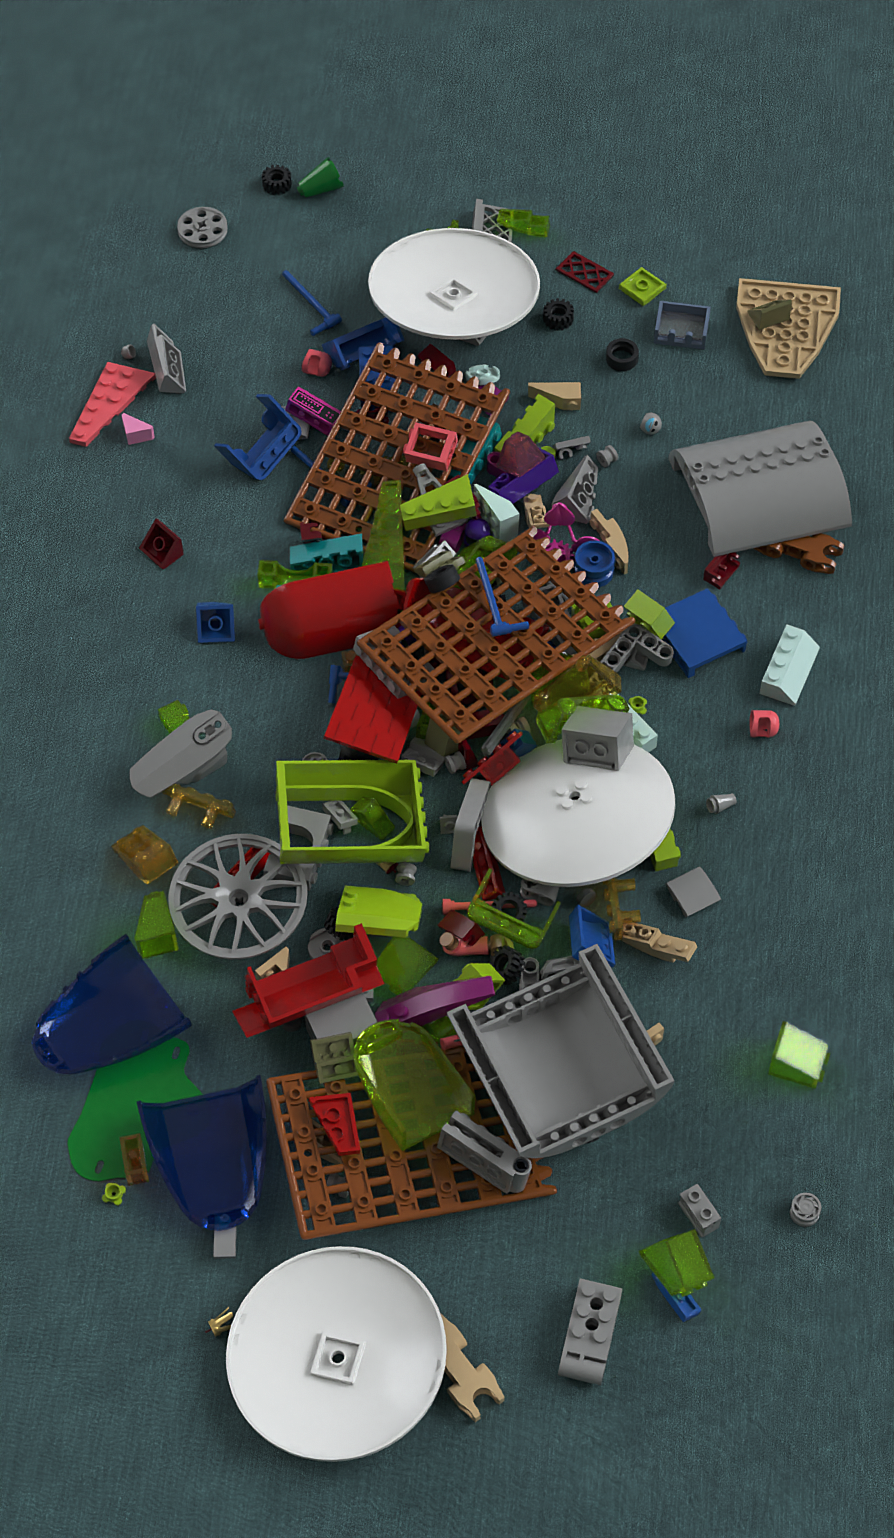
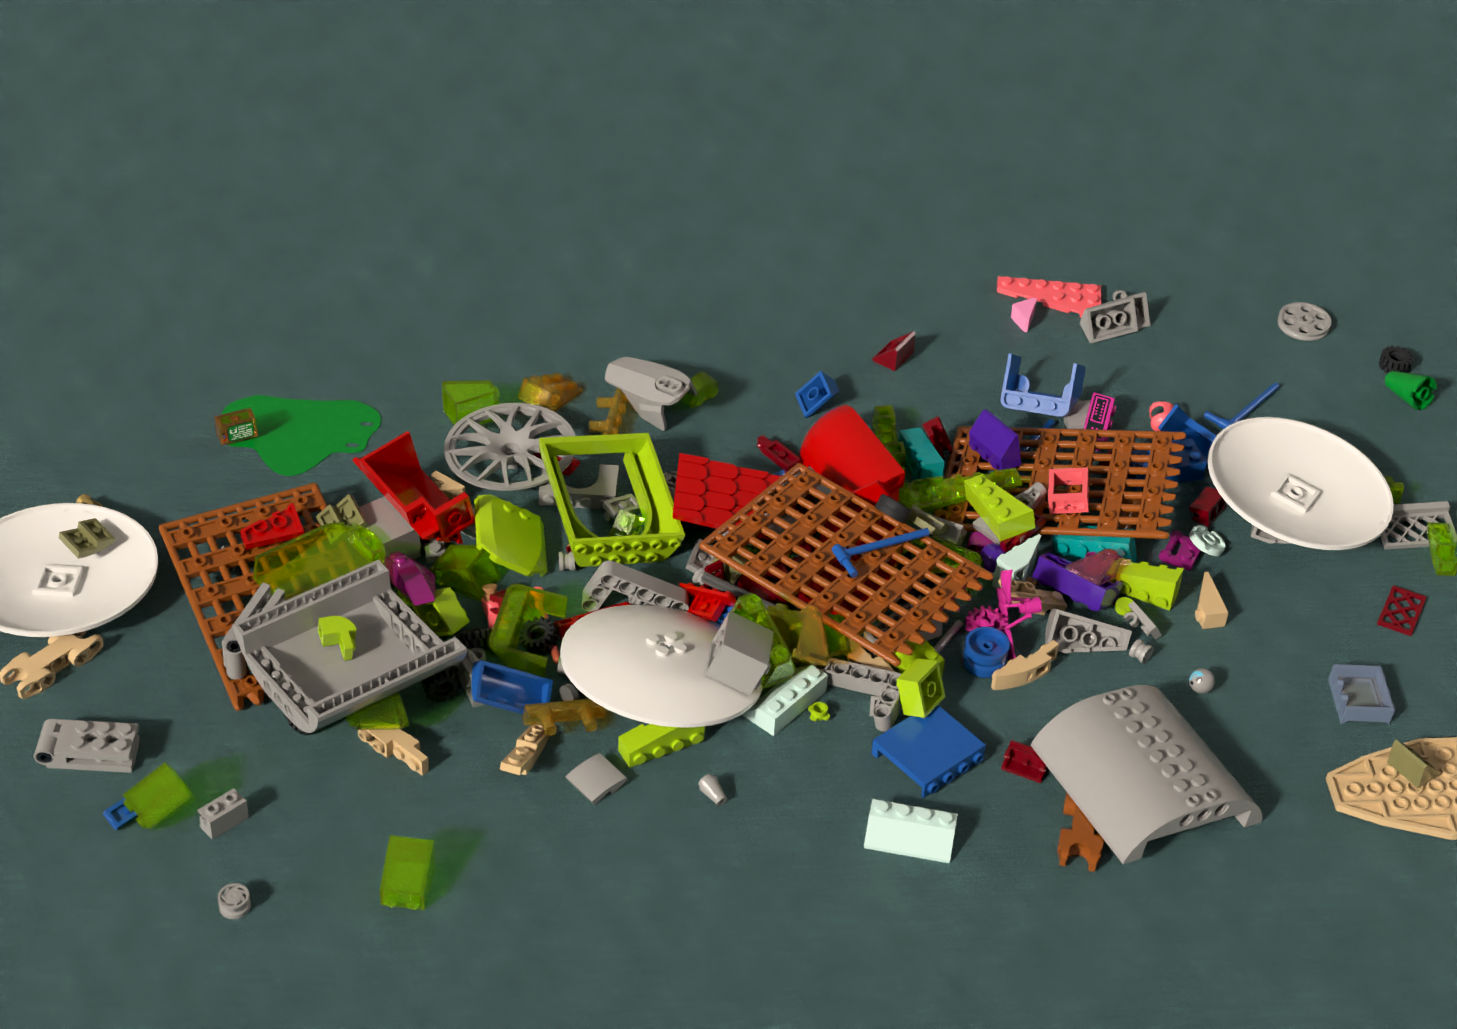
camera: 75 degrees right, 15 degrees down
(107, 1014) = (377, 390): clear blue windscreen -> none
(111, 1188) = (207, 425): lime plate -> none
(211, 1152) = (244, 465): clear blue windscreen -> none
(225, 1243) = (174, 493): light grey slope -> none
(289, 671) = (777, 453): none -> dark red hinge
(291, 1319) = (87, 538): none -> olive slope
(343, 488) = (995, 442): none -> dark purple slope
(523, 1066) = (339, 631): none -> lime brick
(558, 307) = (1322, 599): black tyre -> none
(622, 364) = (1294, 639): black tyre -> none
(642, 286) = (1402, 657): lime plate -> none
(763, 720) = (825, 818): coral helmet -> none

